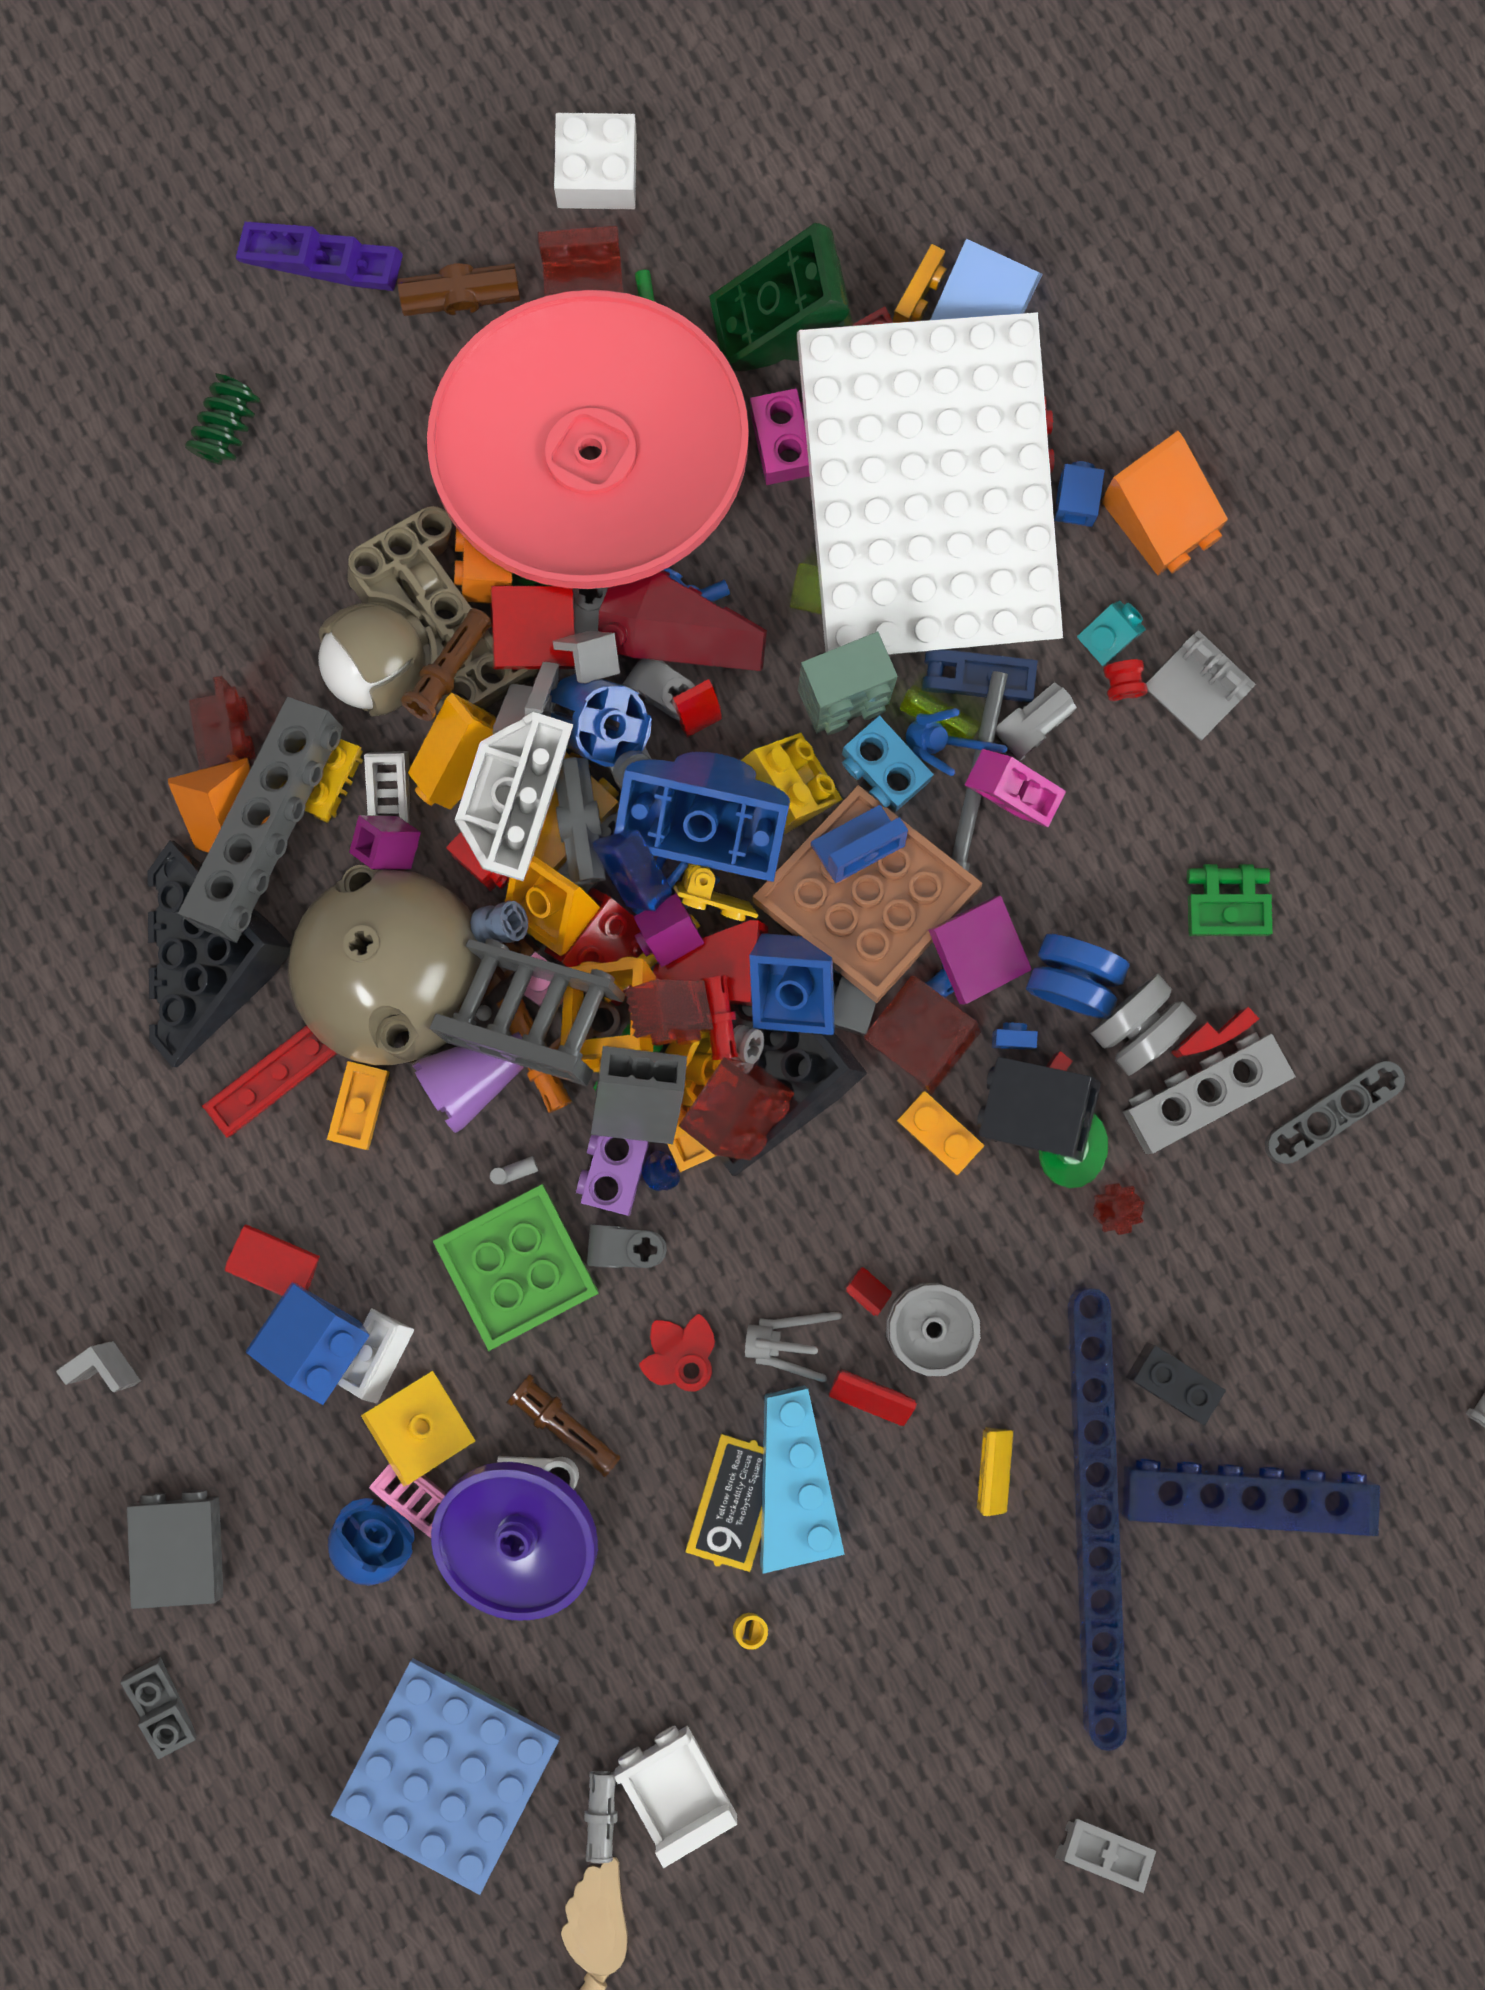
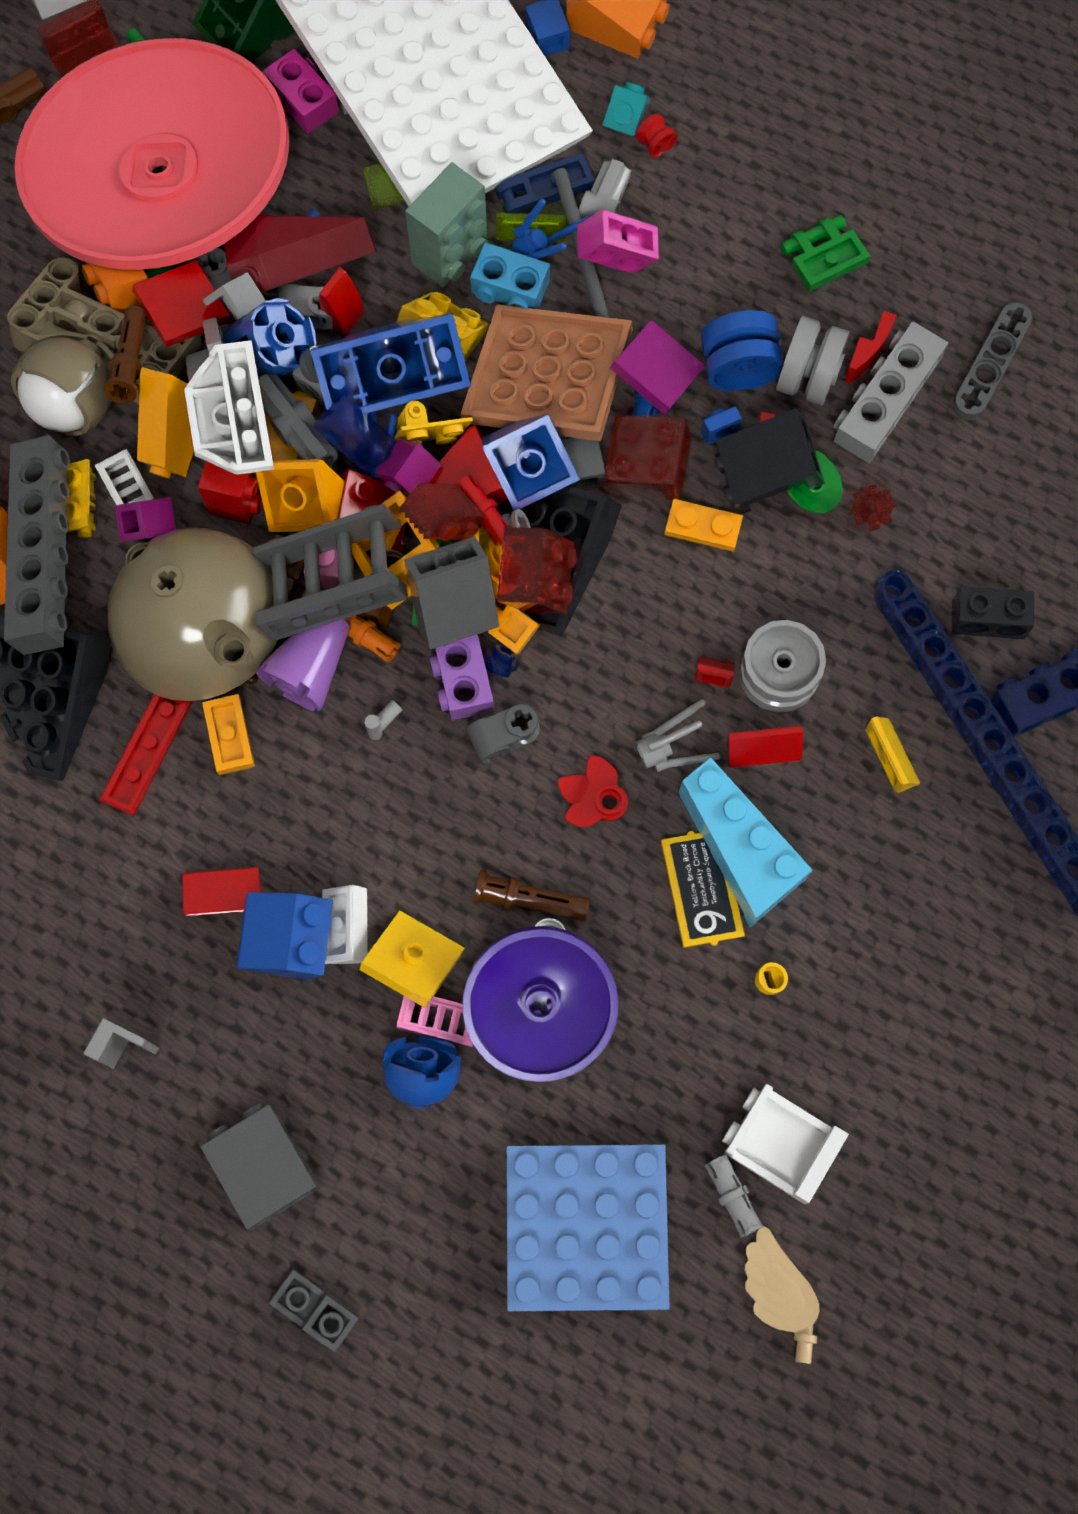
camera: 25 degrees left, 10 degrees down
(501, 922) = (273, 524): sand blue wheel -> none
(515, 1267) = (424, 793): bright green plate -> none
(860, 843) = (523, 336): blue panel -> none
(1199, 685) = (713, 115): light grey hinge -> none

